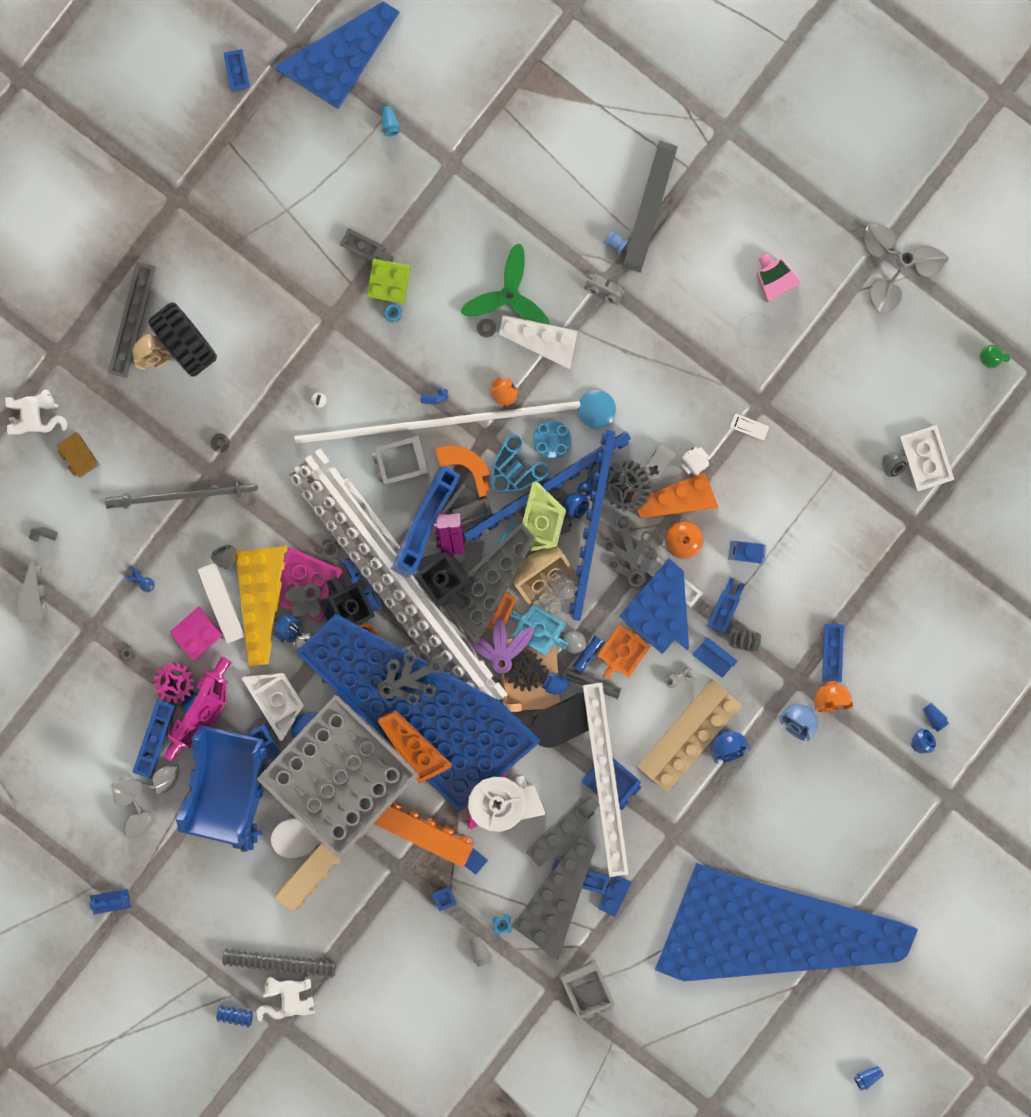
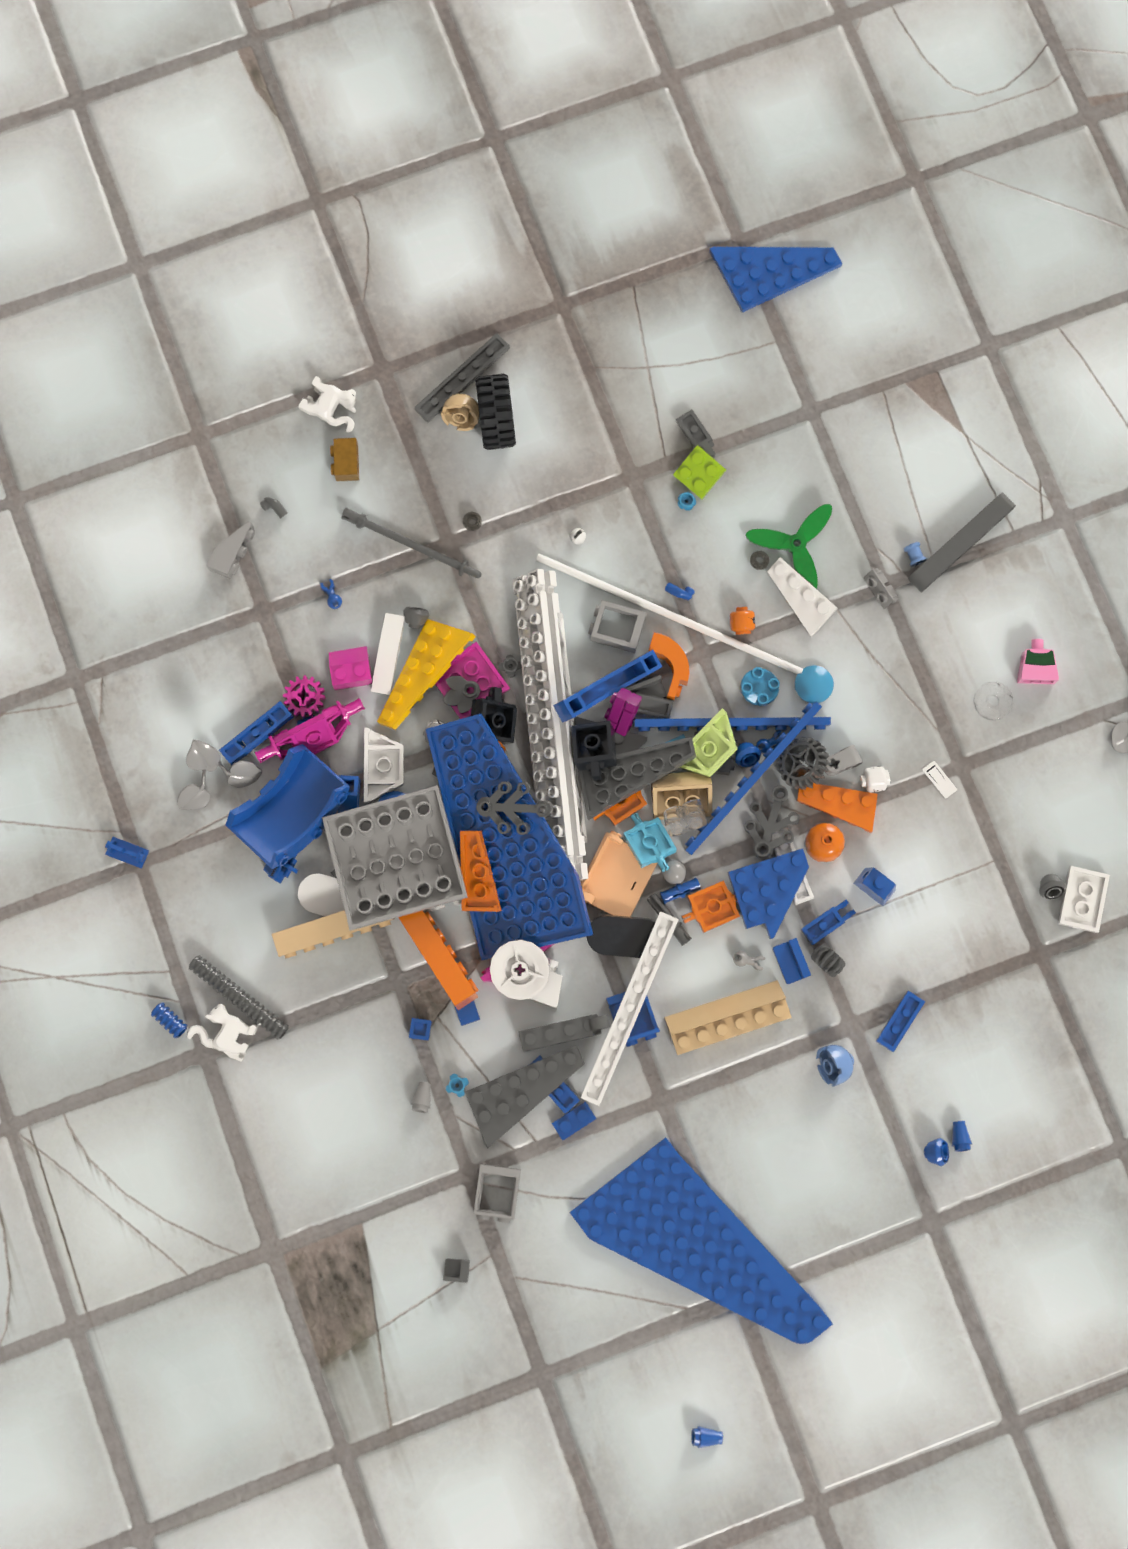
camera: 35 degrees right, 10 degrees down
(127, 653) = (280, 649): dark grey piece -> none
(236, 70) = (676, 231): blue plate -> none
(287, 628) = (431, 708): blue head -> none
(370, 593) = (521, 721): blue piece -> none
(390, 125) = (778, 348): dark azure cone -> none
(500, 642) = (606, 838): medium lavender plant -> none
(504, 457) = (708, 677): dark azure connector -> none
(526, 679) = (607, 867): black gear -> none
(555, 683) = (635, 897): blue piece -> none
(592, 1070) = (456, 1270): none -> dark grey panel
(728, 746) = (757, 1048): blue cylinder -> none
(832, 697) = (877, 1060): orange cylinder -> none

